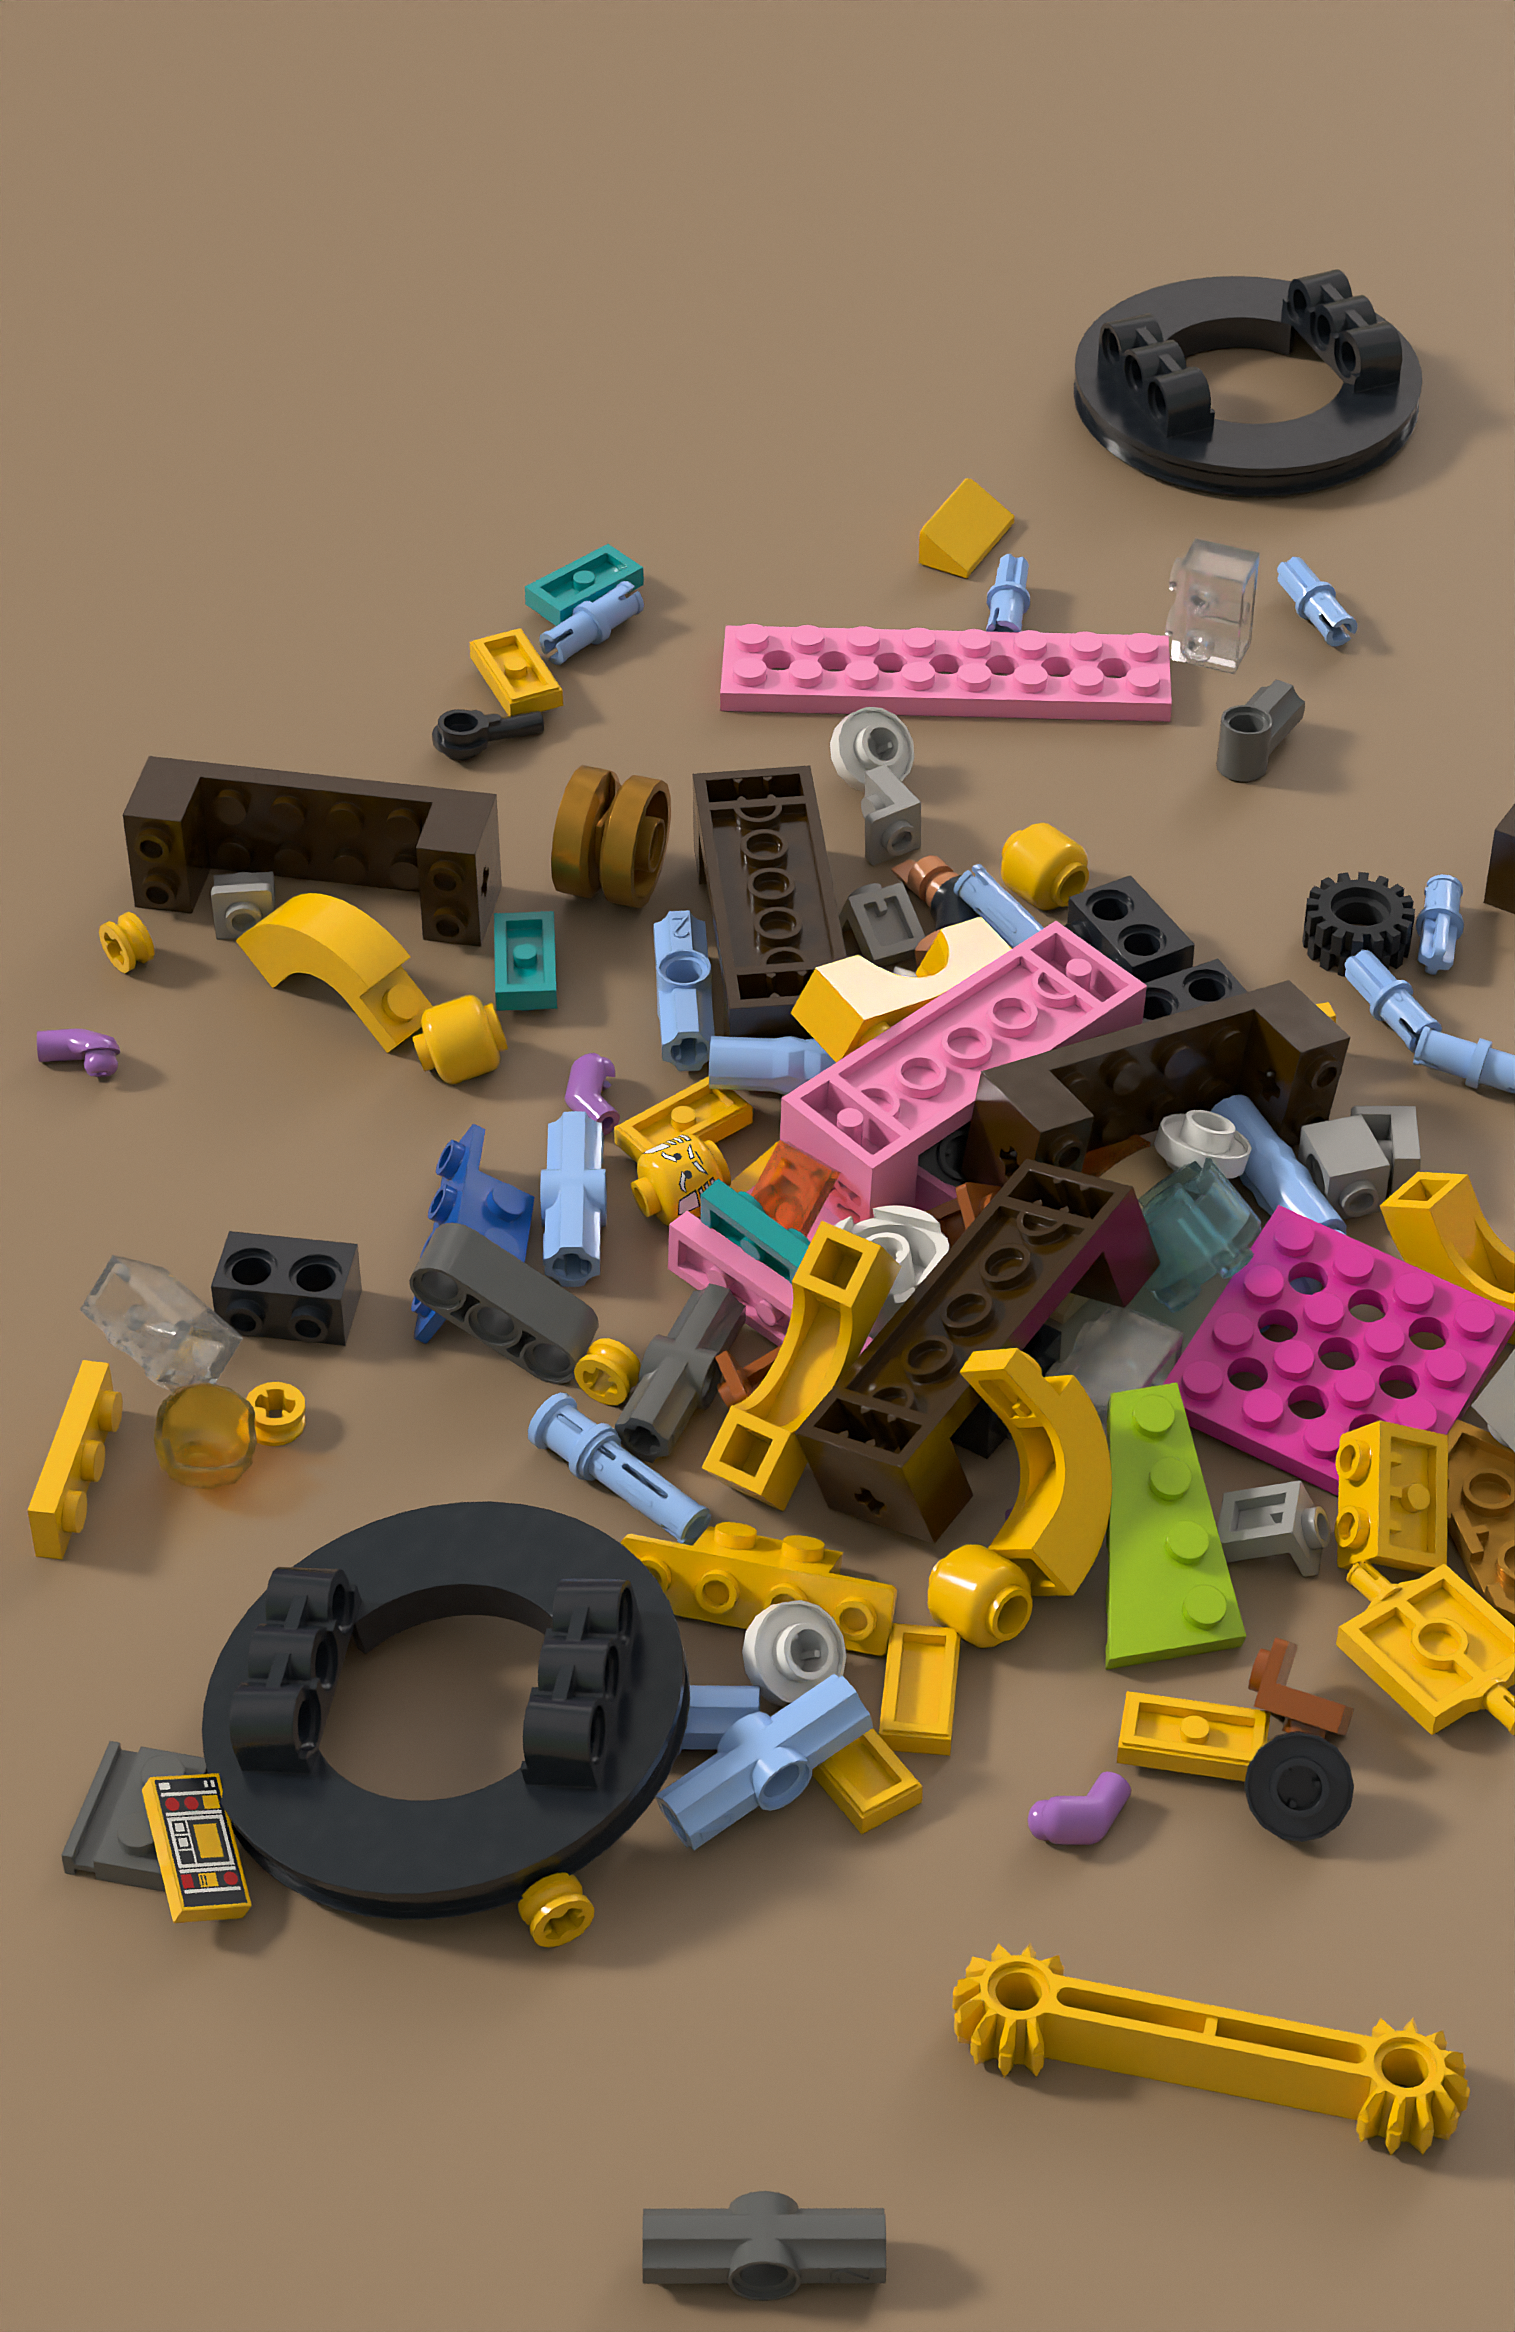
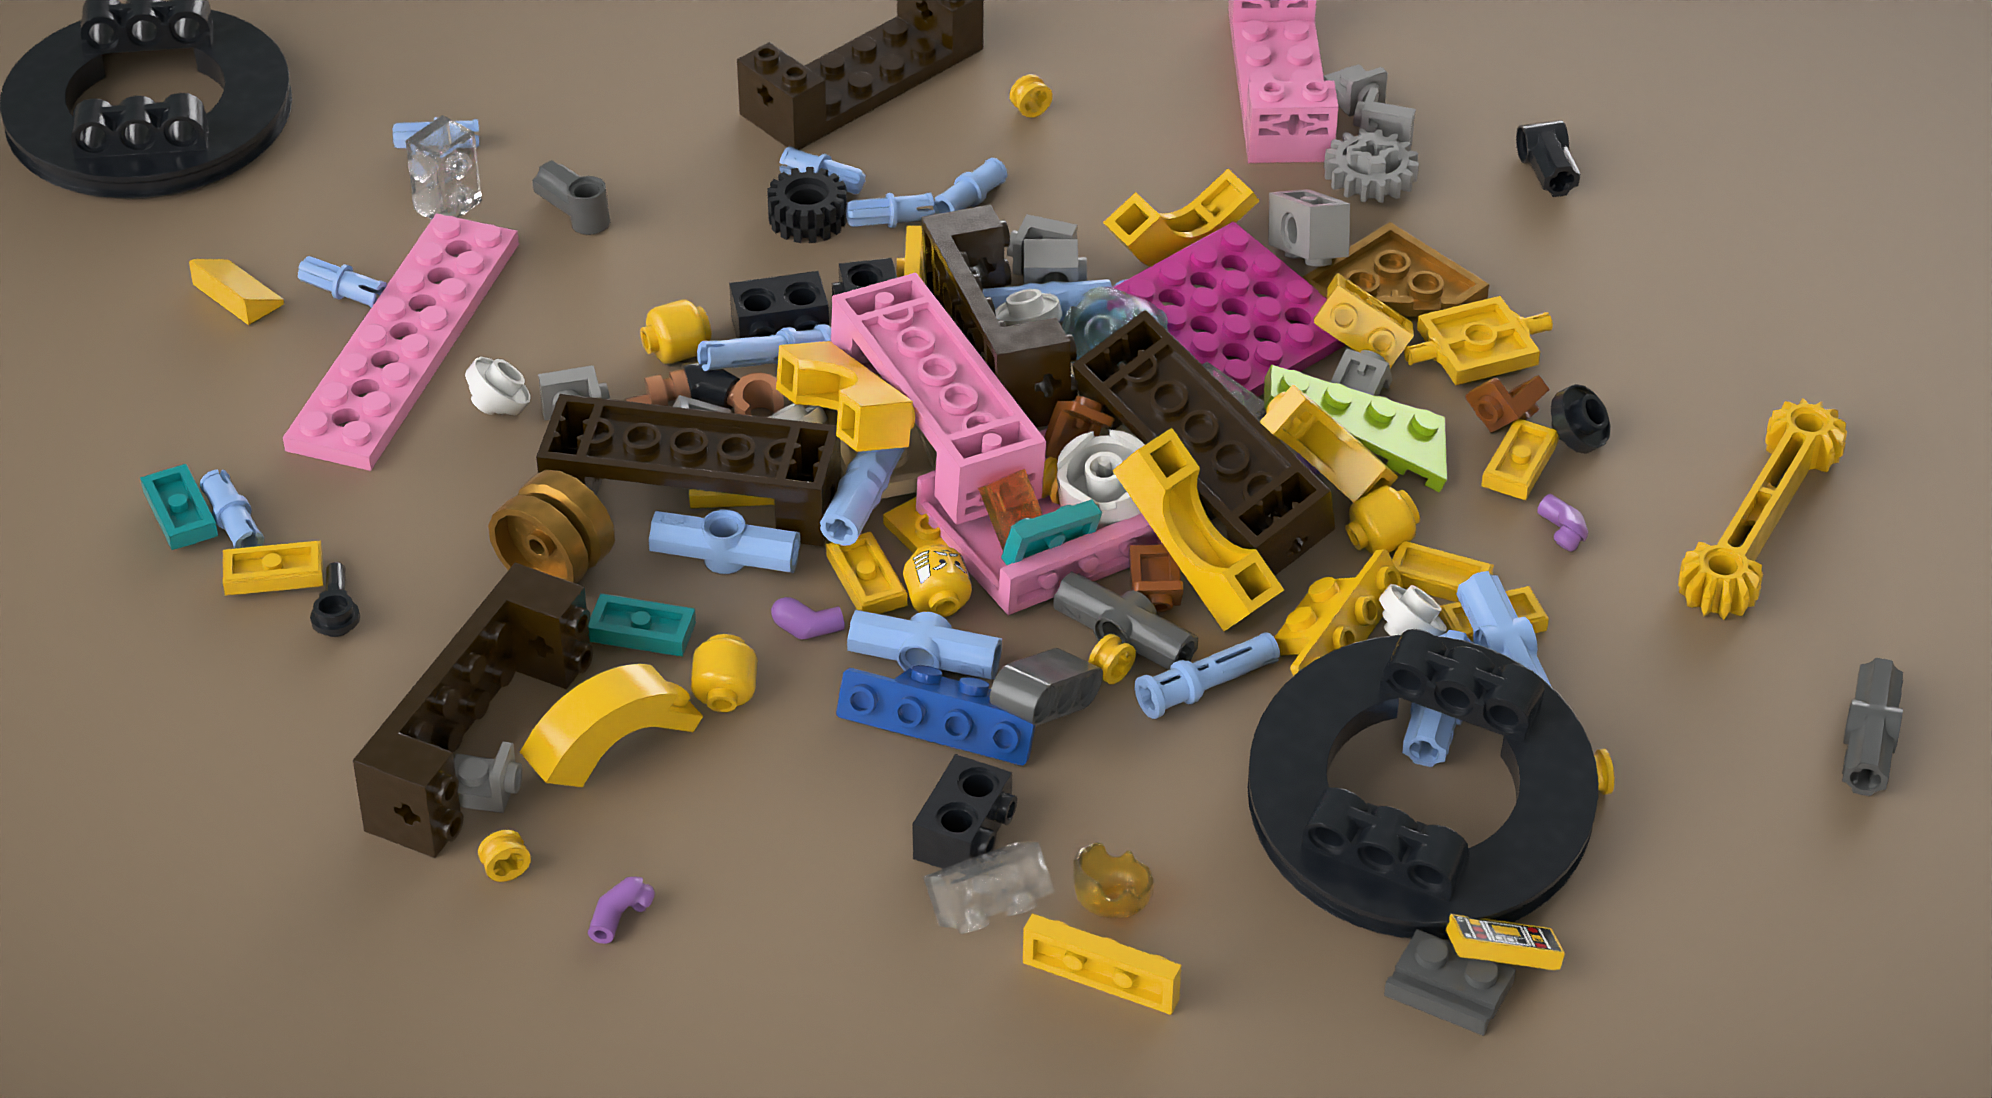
camera: 75 degrees left, 0 degrees up
(273, 1397) = (1069, 843): yellow bush -> none

